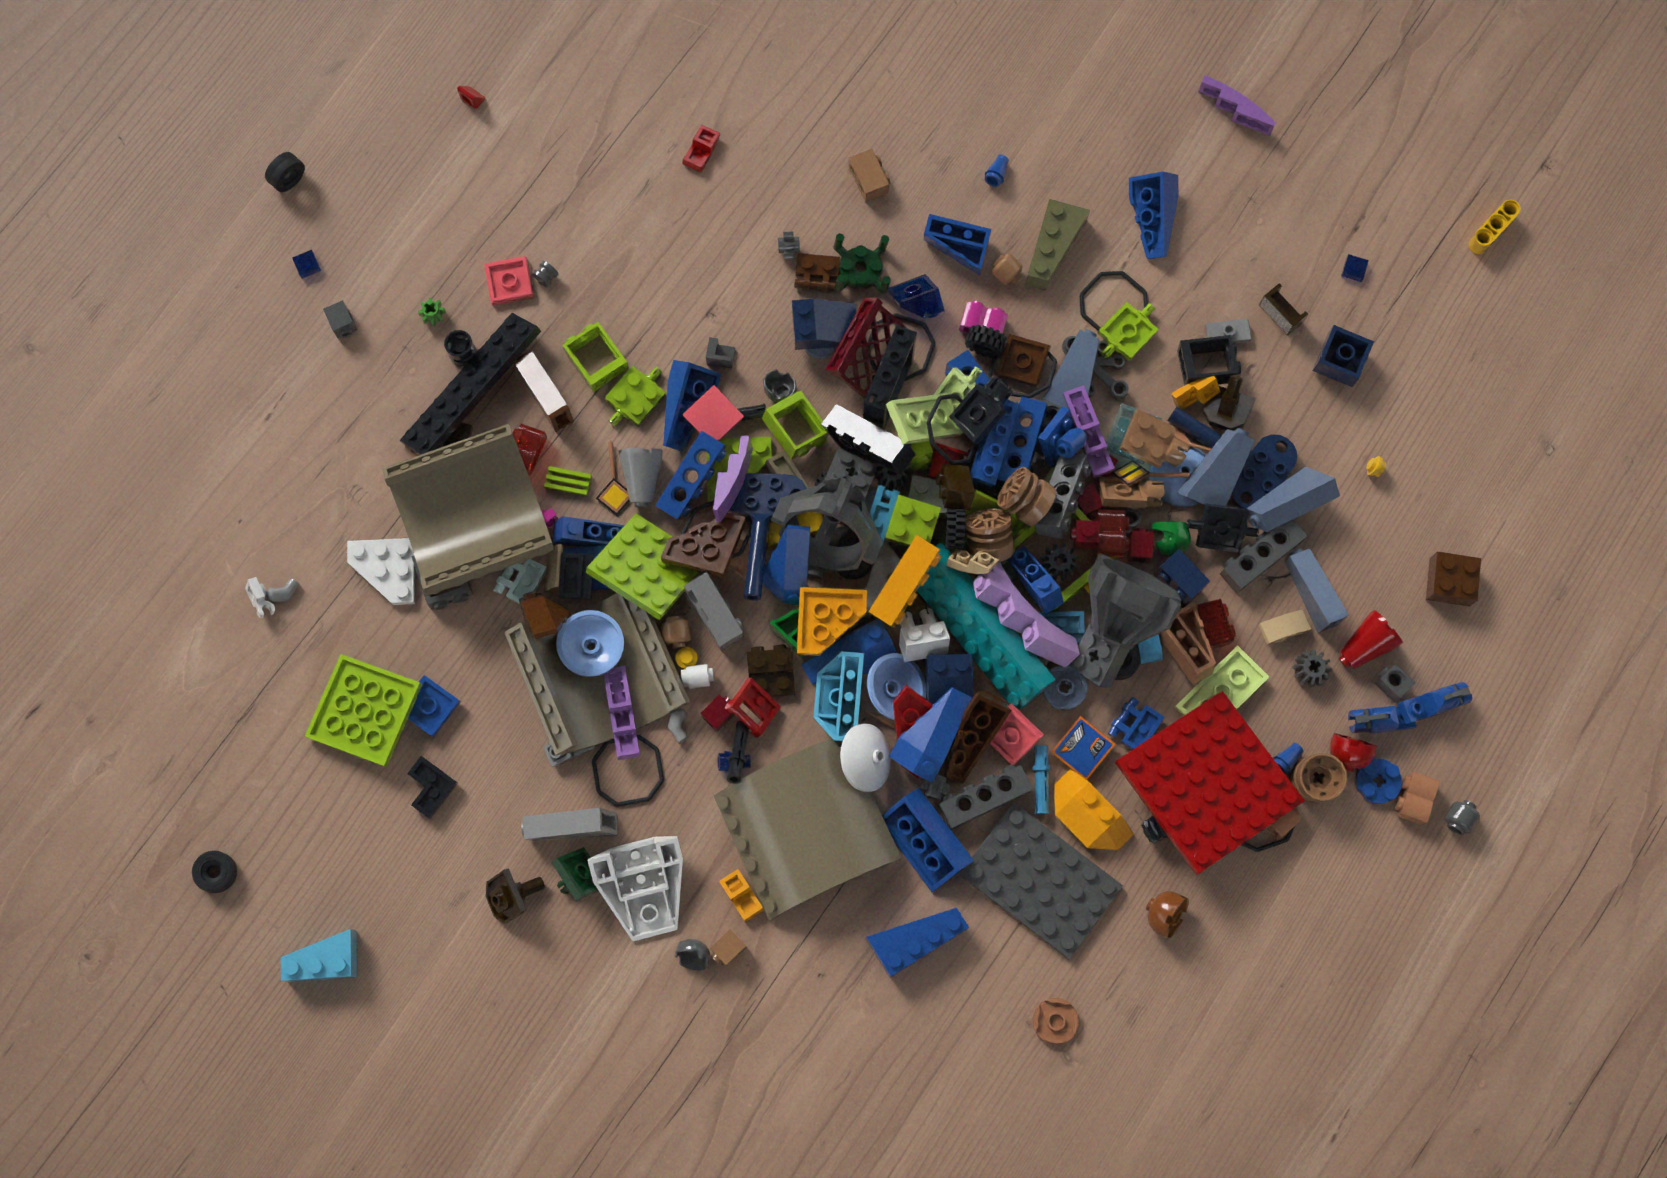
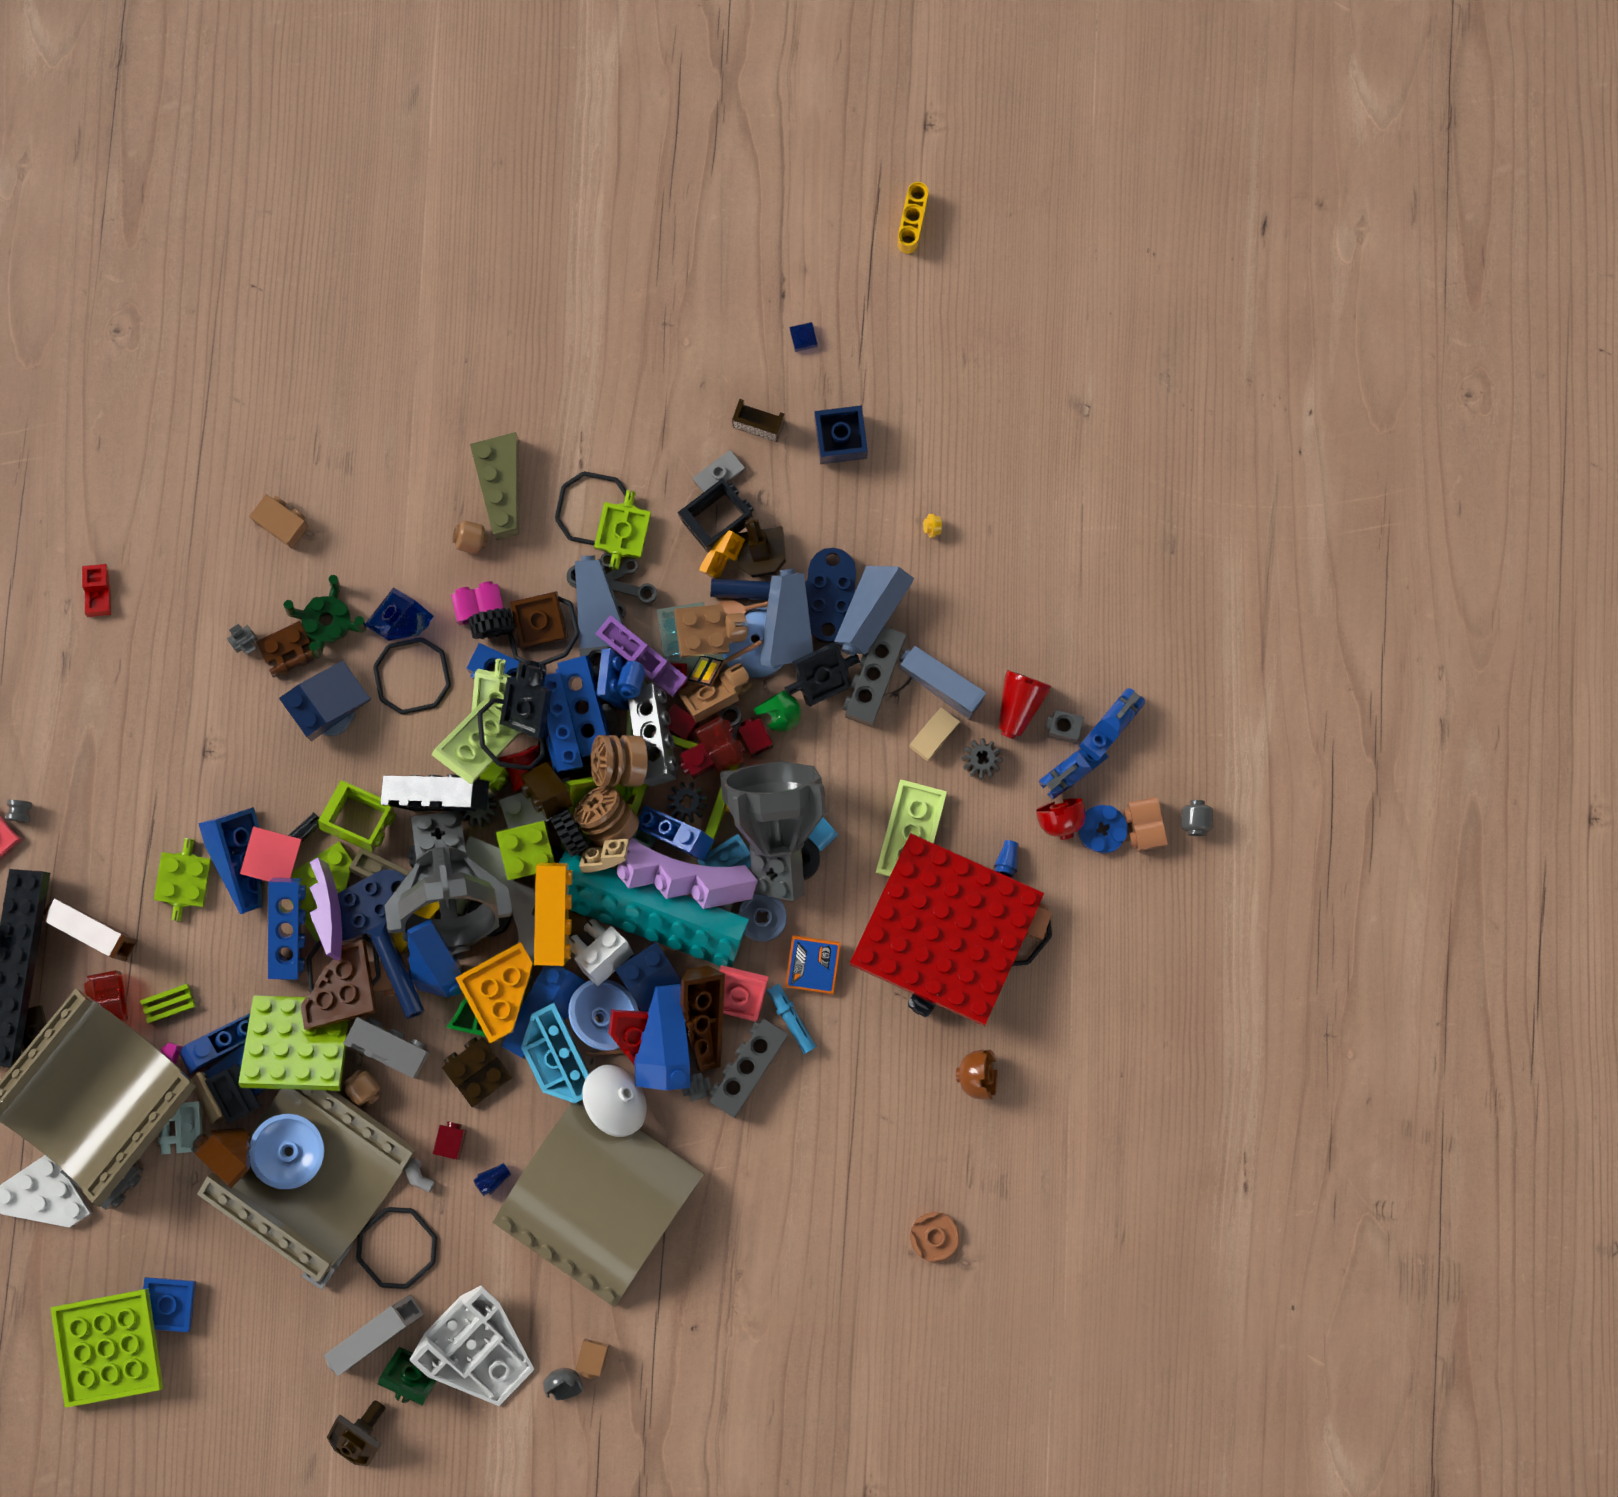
camera: 30 degrees left, 5 degrees up
(436, 786) = (223, 1376): black plate -> none
(606, 373) = (140, 876): lime window -> none
(614, 495) = (222, 989): piece -> none
(621, 713) = (357, 1198): medium lavender slope -> none
(640, 473) = (234, 955): light grey cone -> none
(686, 657) = (387, 1106): yellow plate -> none
(697, 676) = (408, 1118): white brick -> none
(719, 354) = (240, 788): dark grey panel -> none
(737, 758) = (491, 1169): black pin -> none
(741, 895) = (575, 1300): light orange slope -> none
(758, 702) = (483, 1109): red plate -> none
(779, 385) = (317, 786): dark grey hair -> none
(855, 338) = (363, 698): dark red fence -> none
(882, 512) = (490, 855): dark azure plate -> none
(890, 375) = (419, 719): black window -> none
(912, 941) = (758, 1248): blue wedge -> none
(926, 840) = (716, 1142): blue slope -> none
(958, 240) = (406, 537): blue wedge -> none
(996, 172) = (402, 442): blue cone -> none
(1041, 880) = (845, 1113): dark grey plate -> none
(1089, 814) = (853, 1025): light orange wedge -> none
(1143, 727) = (857, 912): blue plate -> none
(1155, 208) = (576, 386): blue wedge -> none
(1183, 577) = (811, 748): dark blue brick -> none
(1189, 644) = (853, 806): nougat wedge -> none
(1216, 624) = (866, 771): clear red brick -> none
(1244, 110) = (607, 238): medium lavender slope -> none
(1331, 781) = (1059, 859): medium nougat wheel -> none
(1453, 579) = (1064, 593): reddish brown brick -> none

